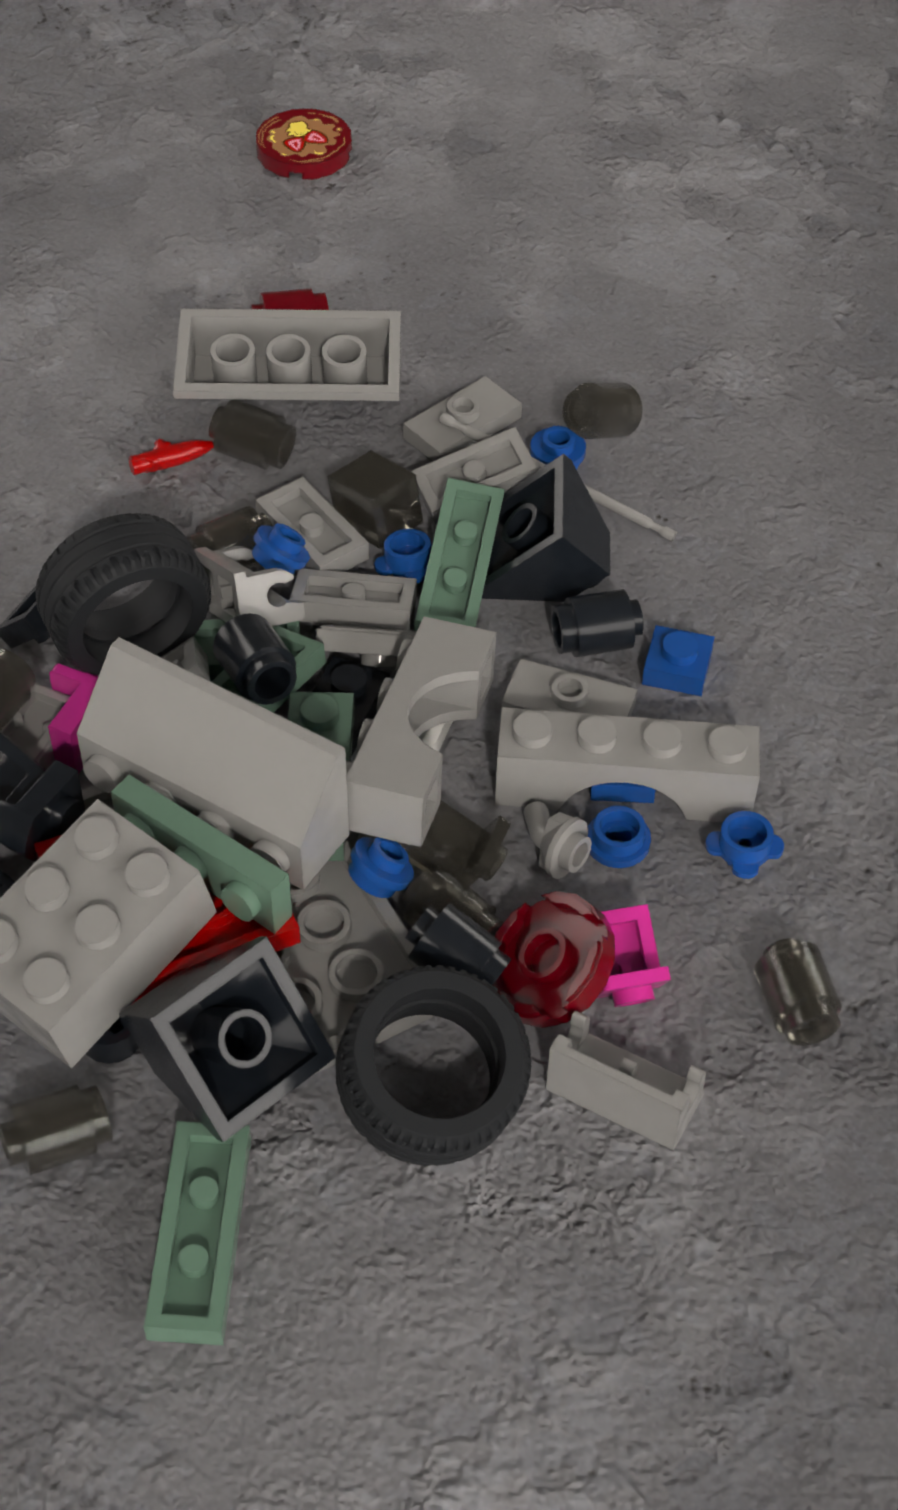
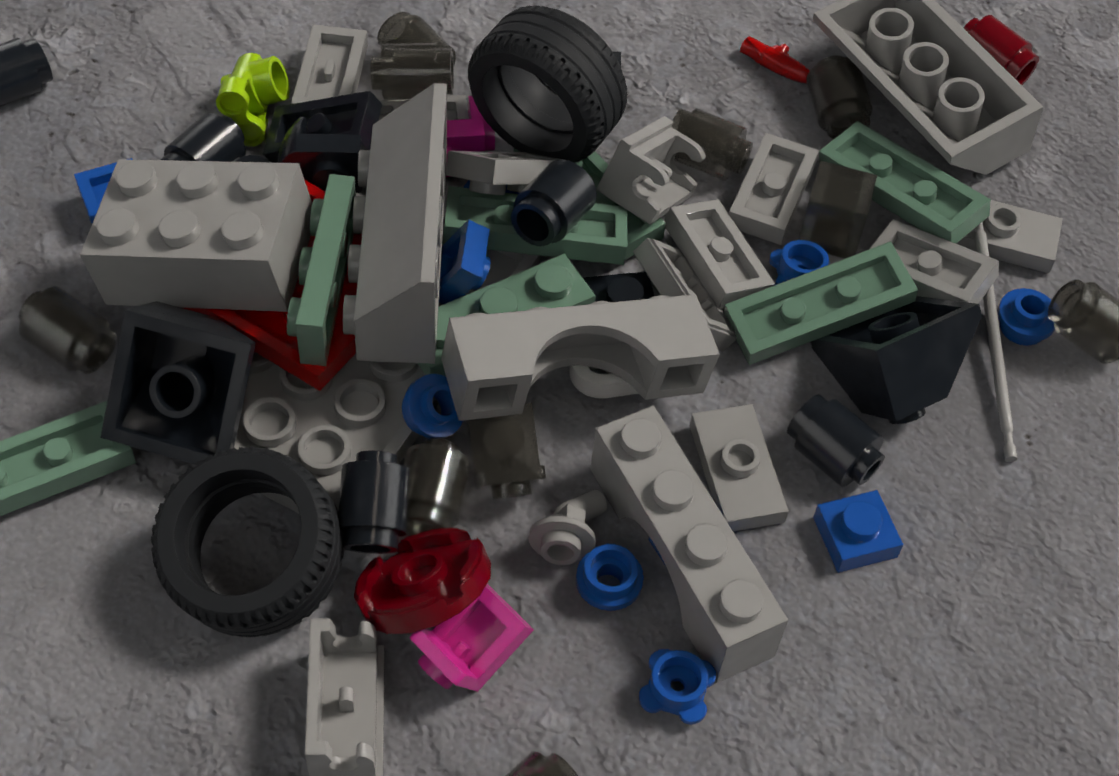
camera: 55 degrees right, 5 degrees up
(280, 548) = (715, 172): blue plate -> none
(402, 436) = (909, 184): none -> sand green plate

